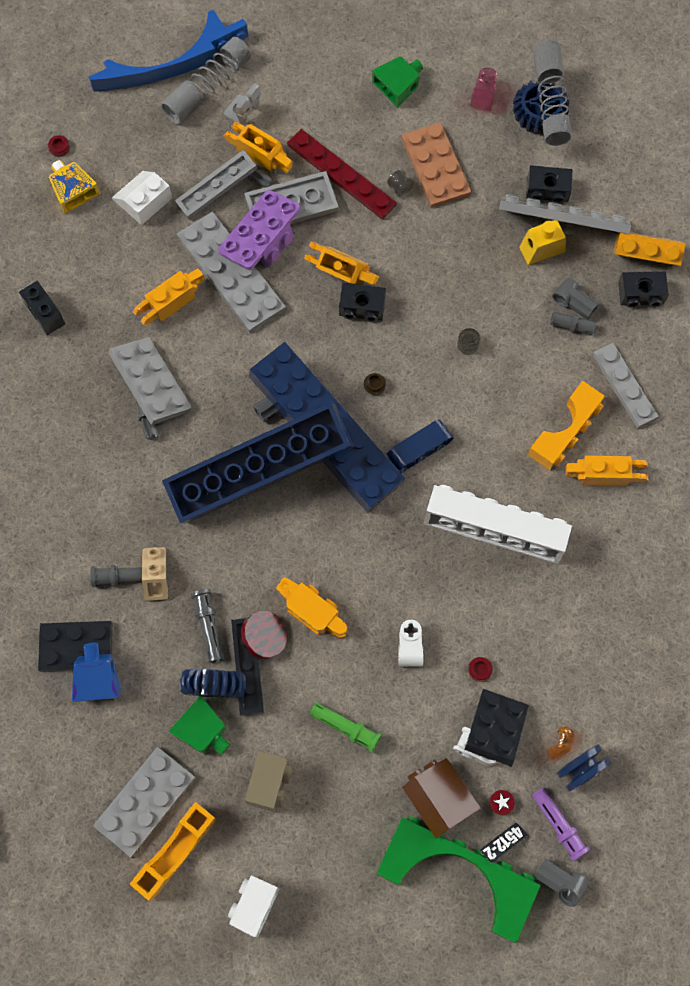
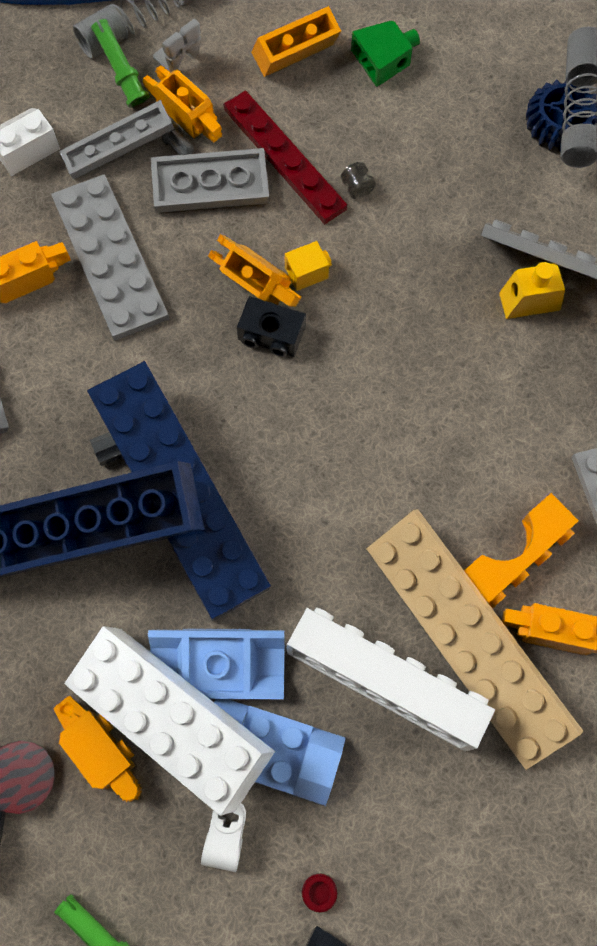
camera: 10 degrees right, 0 degrees up
(210, 134) = (125, 75): none -> bright green pin
(261, 232) = (160, 211): medium lavender bracket -> none
(331, 85) = (296, 41): none -> light orange brick
(357, 574) = (170, 720): none -> white brick
(374, 384) = (263, 441): dark brown plate -> none
(378, 252) = (307, 265): none -> yellow brick
(378, 537) = (225, 660): none -> light blue piece
(420, 444) = (304, 539): dark blue beam -> none
(427, 587) = (303, 755): none -> light blue piece
(436, 165) = (410, 167): nougat plate -> none
(466, 337) = (405, 400): clear smoke wheel -> none
(484, 90) = (494, 81): clear pink piece -> none
(547, 486) = (474, 639): none -> tan plate
(558, 178) = (568, 210): black brick -> none
(570, 295) = (557, 370): dark grey piece -> none
(573, 323) = (553, 409): dark grey pin -> none

